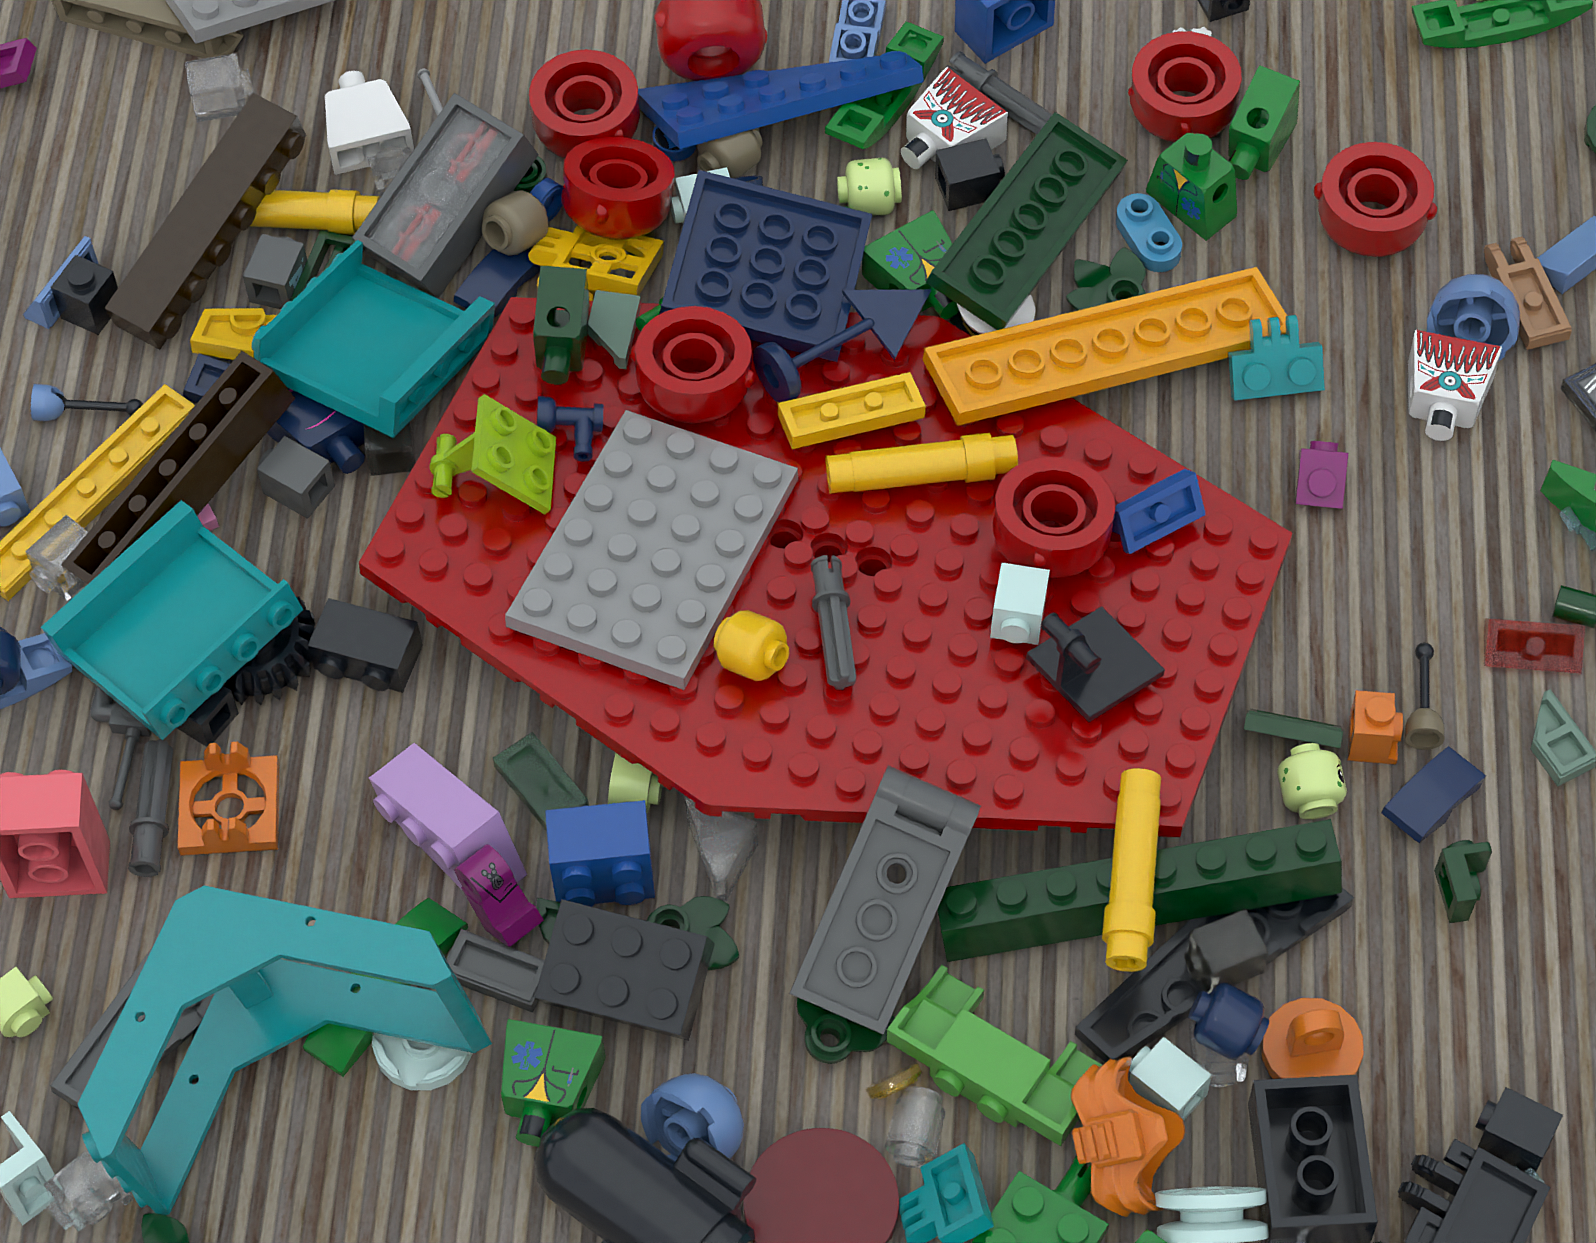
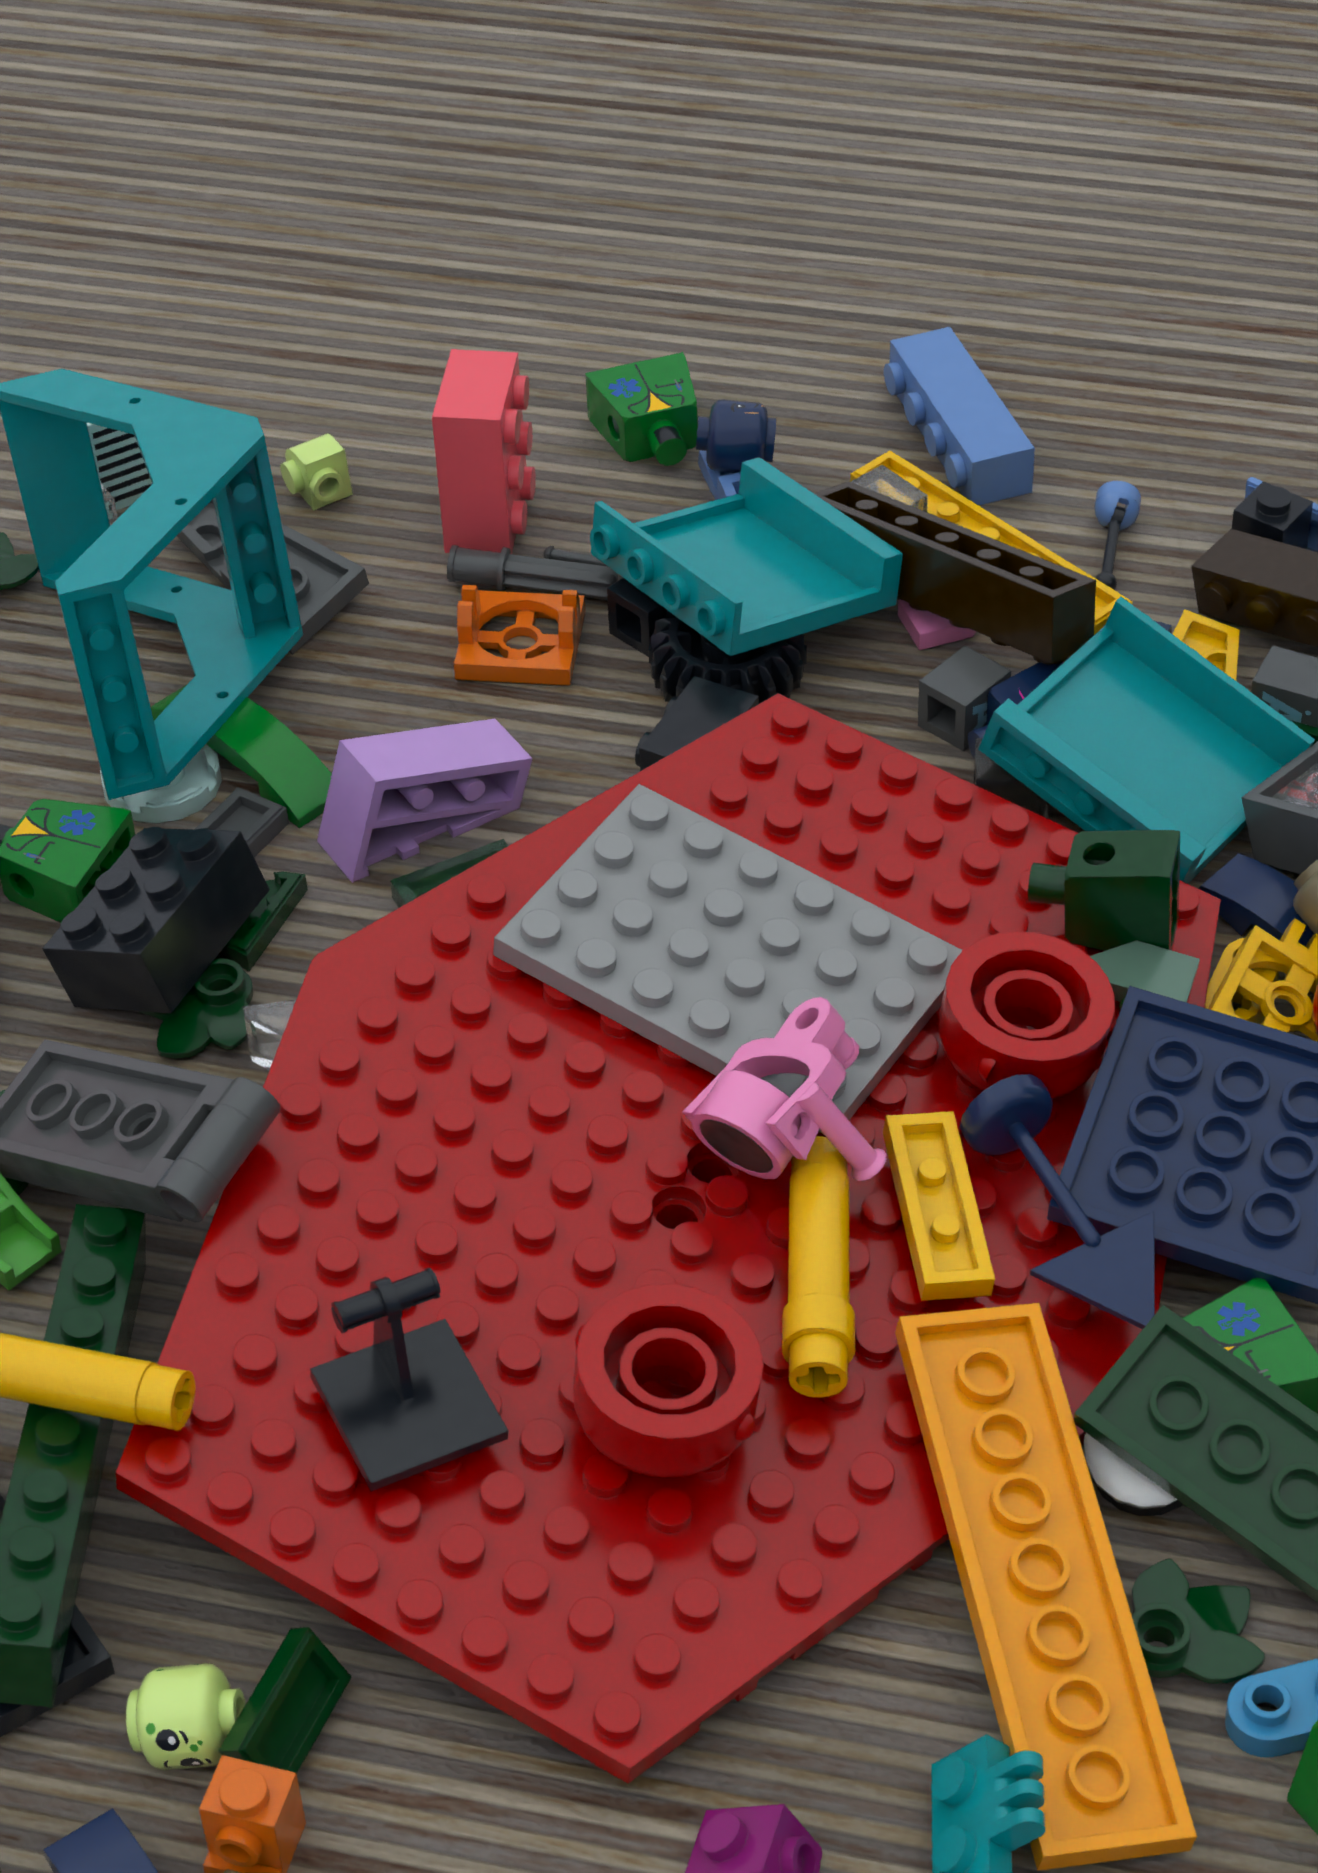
camera: 100 degrees right, 15 degrees down
(497, 896) = (300, 815): magenta leg -> none
(503, 452) = (892, 813): lime plate -> none
(583, 419) = (973, 875): dark blue piece -> none
(600, 853) = (314, 892): blue brick -> none
(751, 645) = (525, 1007): yellow head -> none
(832, 605) = (552, 1111): dark grey axle -> none
(836, 493) = (761, 1126): none -> bright pink piece
(1019, 603) = (527, 1322): light aqua brick -> none
(1158, 510) = (671, 1541): blue plate -> none

